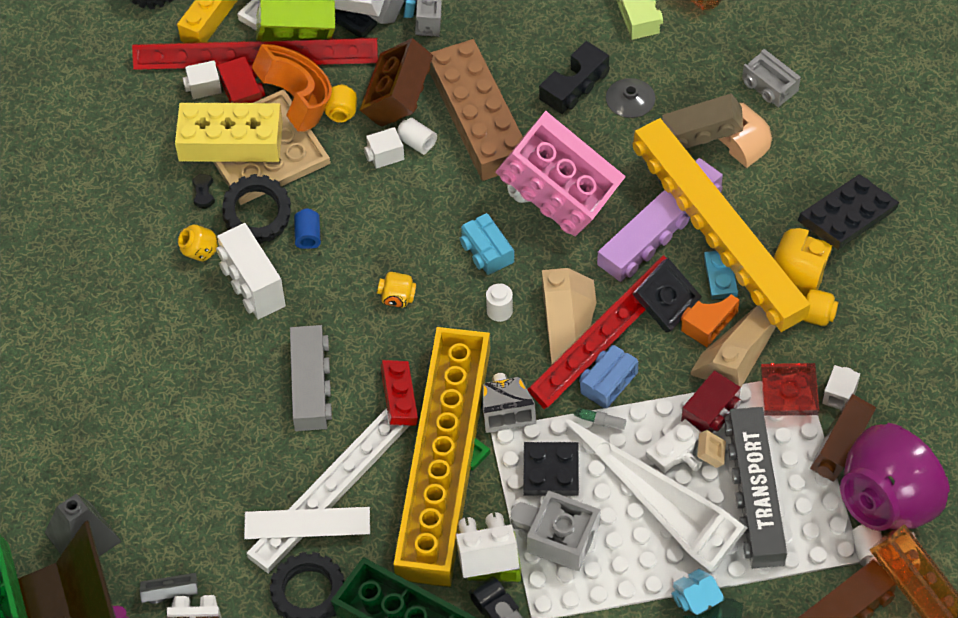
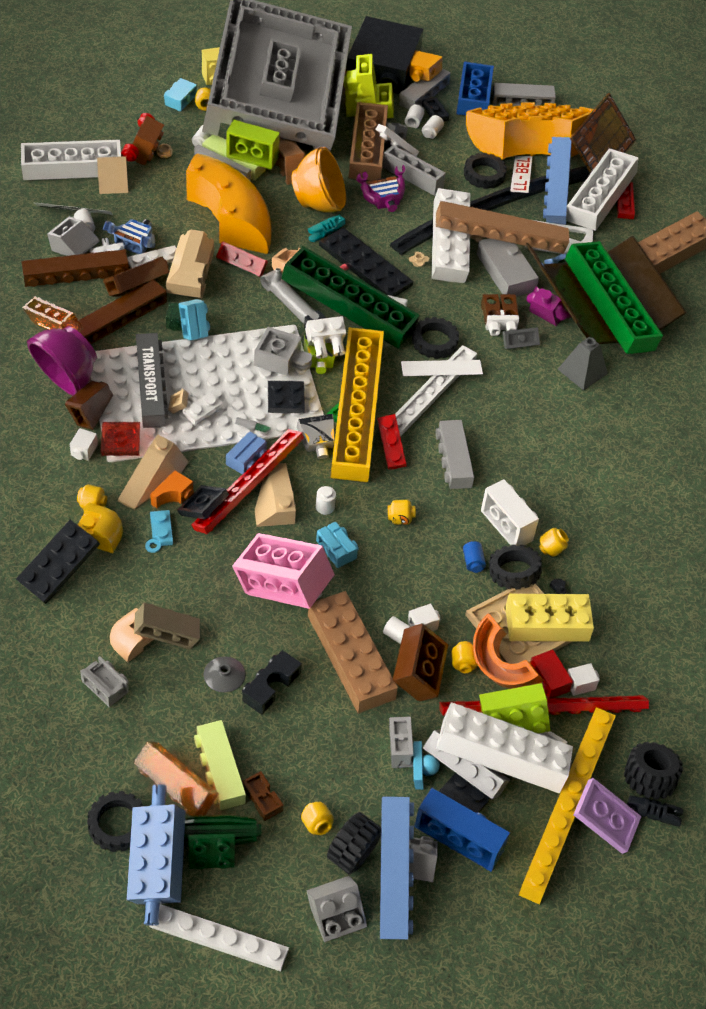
camera: 170 degrees right, 5 degrees down
(648, 231) = (203, 563): lavender brick -> none
(692, 520) = (193, 358): white plate -> none
(712, 403) = (177, 425): dark red brick -> none
(721, 225) = (163, 541): yellow brick -> none

